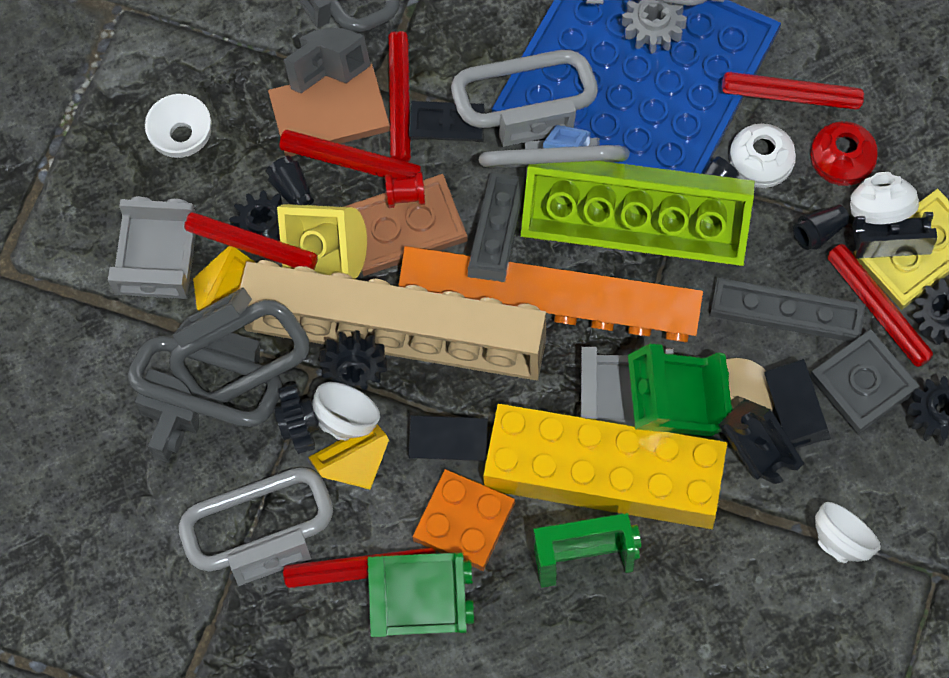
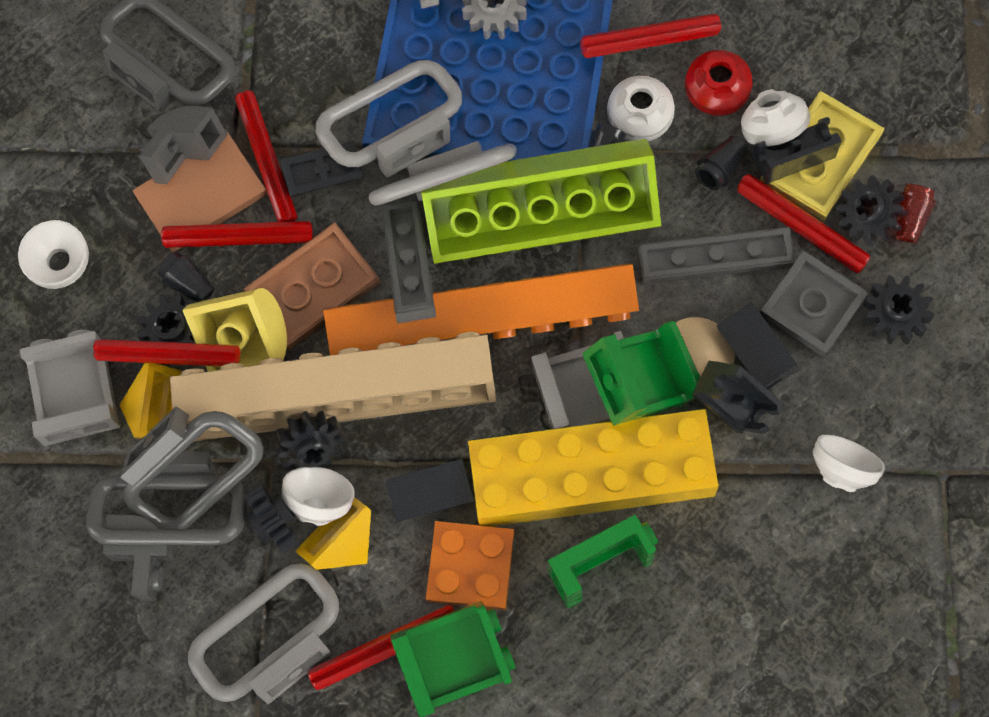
camera: 15 degrees left, 5 degrees up
(405, 189) = (304, 251): red bush -> none
(566, 137) = (448, 152): medium blue tile -> none

